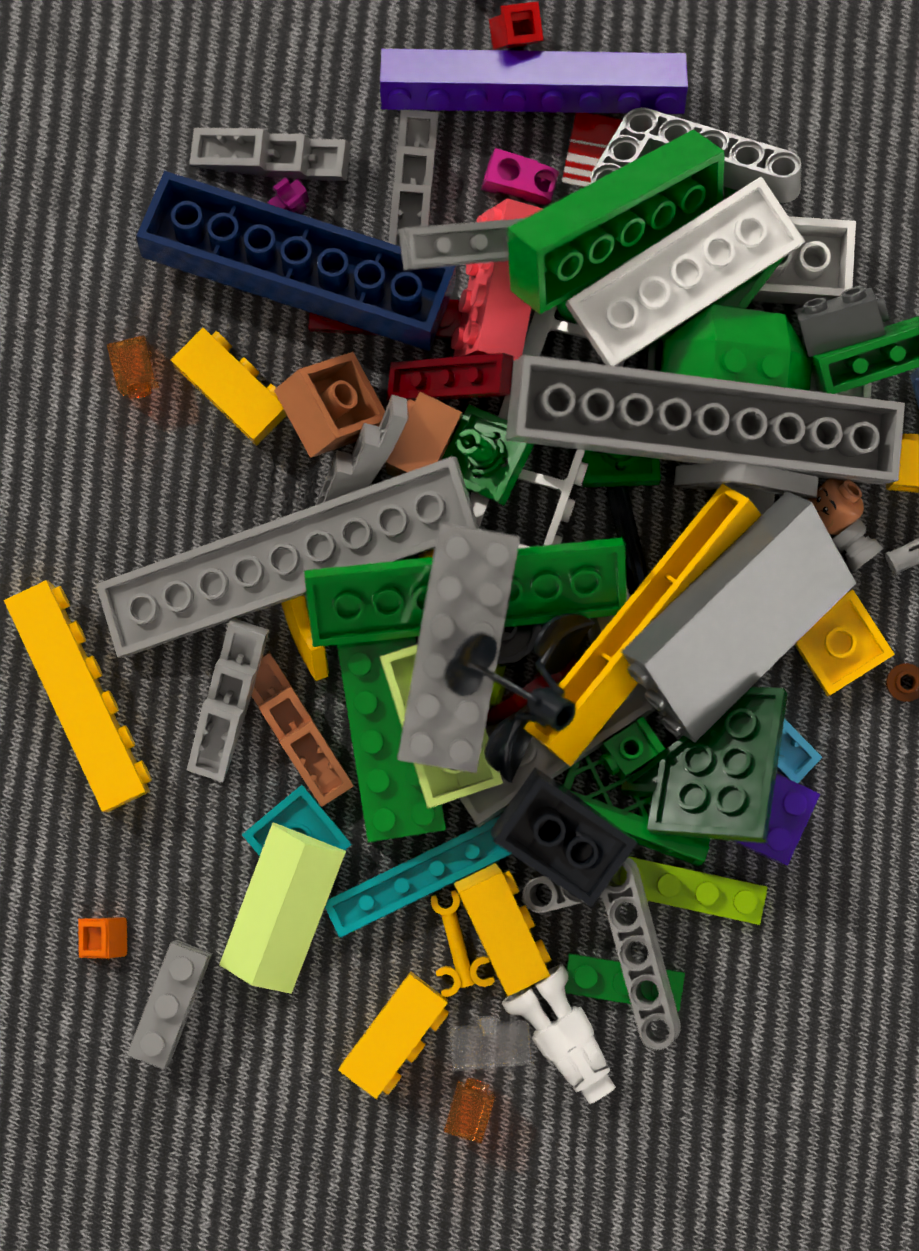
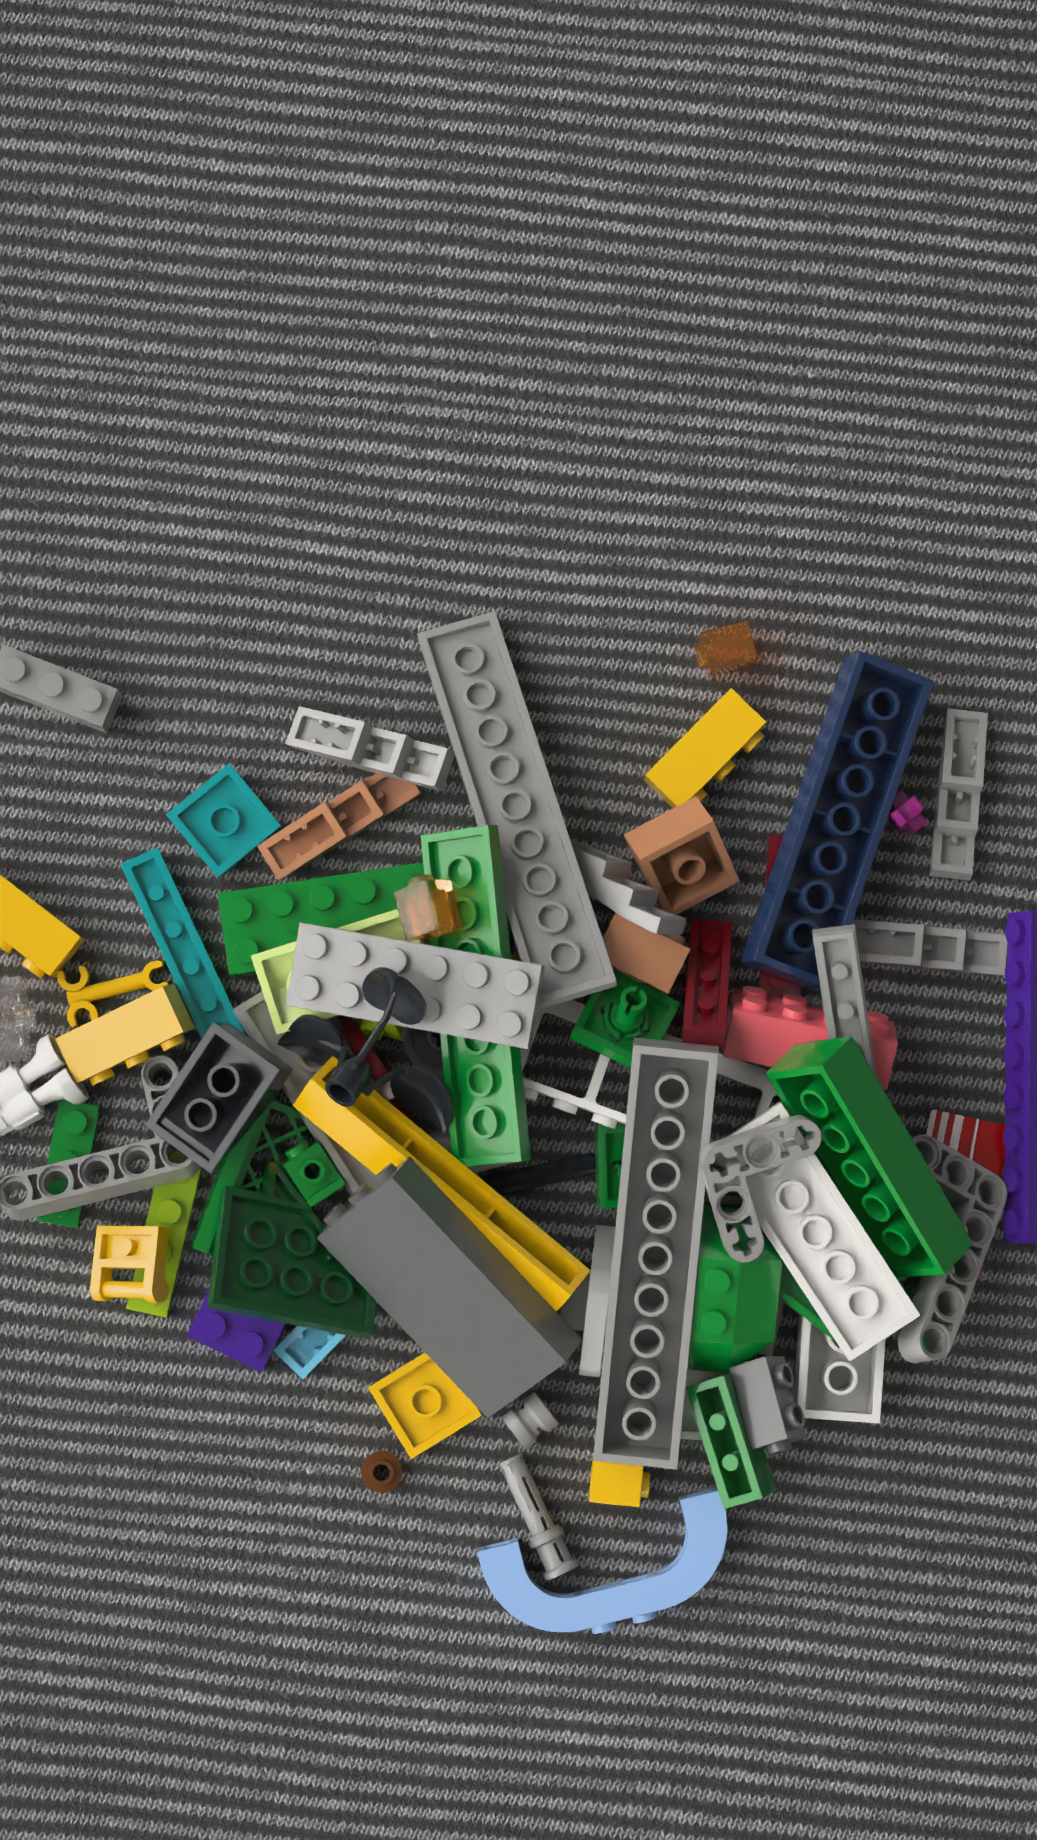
camera: 90 degrees right, 0 degrees up
(77, 695) = (376, 593): yellow brick -> none
(102, 937) = (125, 619): orange slope -> none
(281, 909) = (150, 804): yellowish green slope -> none
(299, 625) = (411, 840): yellow tile -> none
(383, 637) = (427, 908): none -> clear orange brick
(520, 177) = (932, 1063): dark pink leg -> none
(637, 341) = (734, 1176): none -> light grey beam
(706, 920) = (130, 1249): none -> yellow plate
(838, 504) = (570, 1397): nougat head -> none

